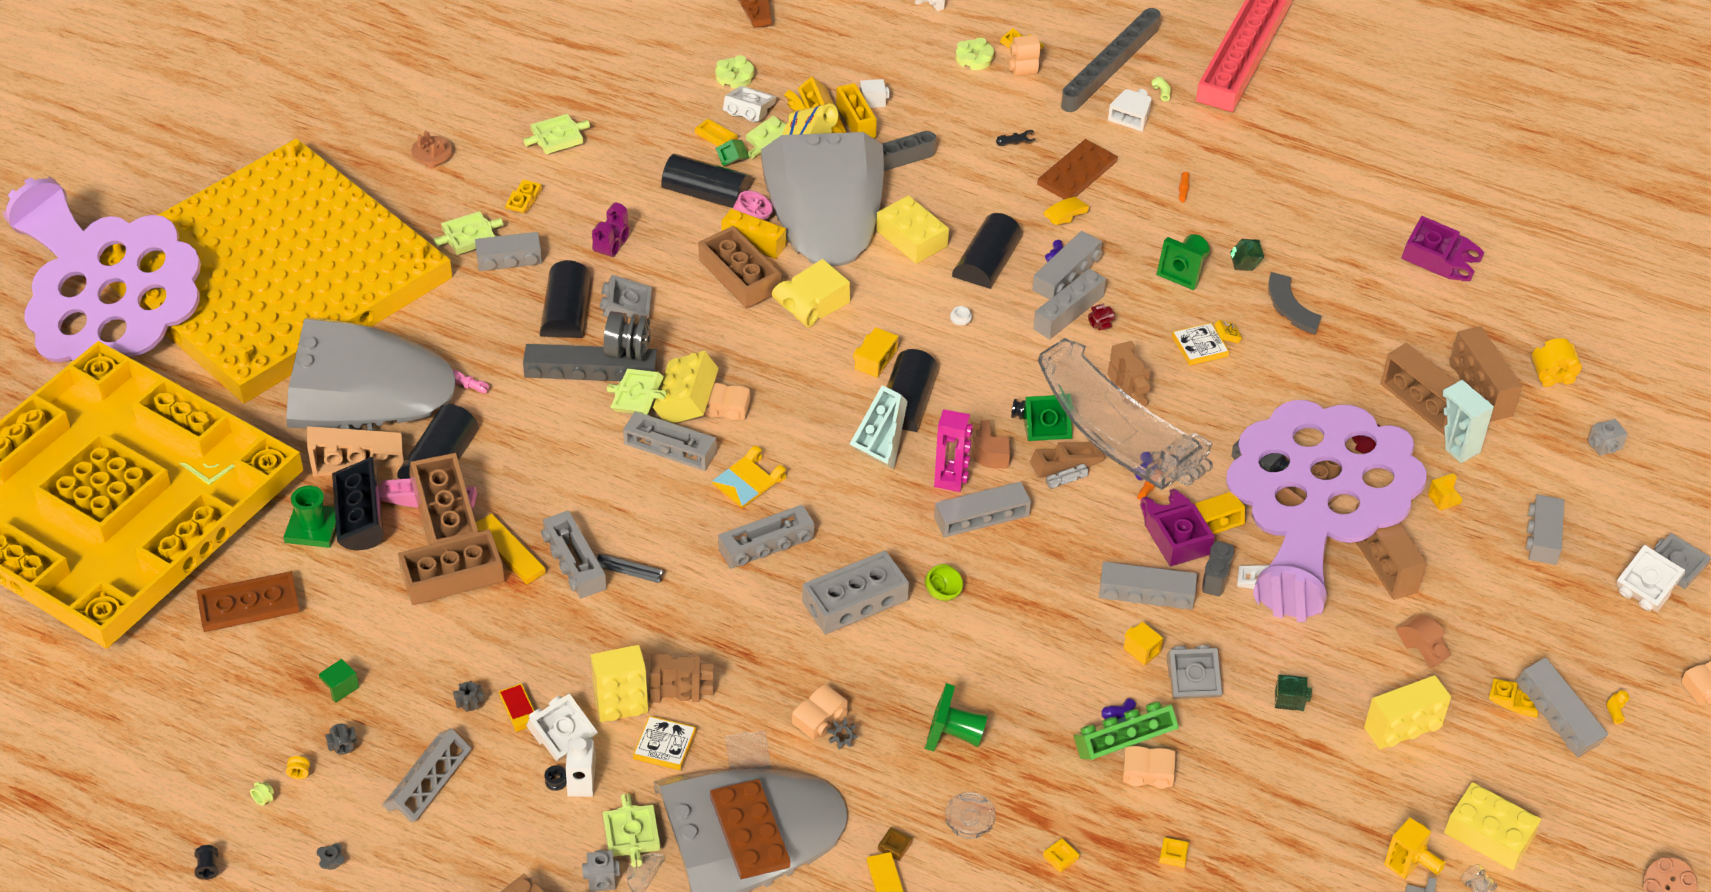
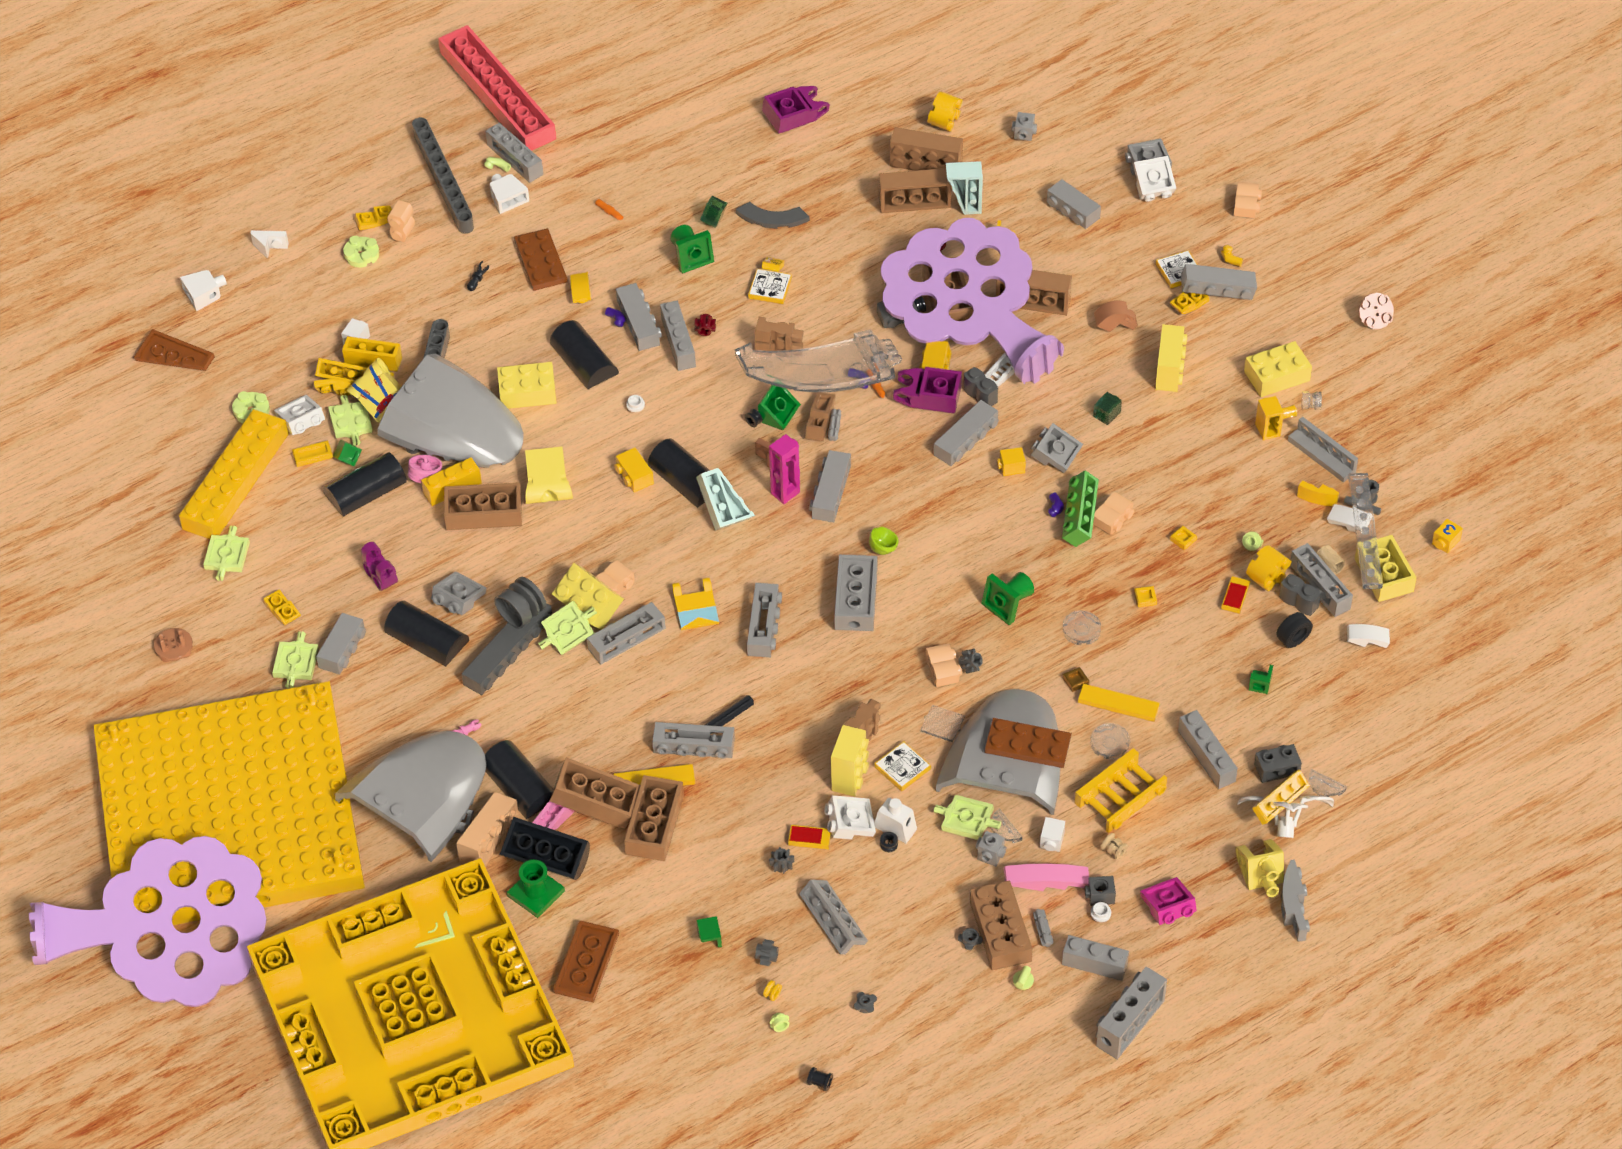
camera: 55 degrees left, 5 degrees up
(646, 95) = (234, 474): none -> yellow brick
(1183, 90) = (514, 152): none -> light grey brick
(1565, 663) = (1173, 265): none -> tile

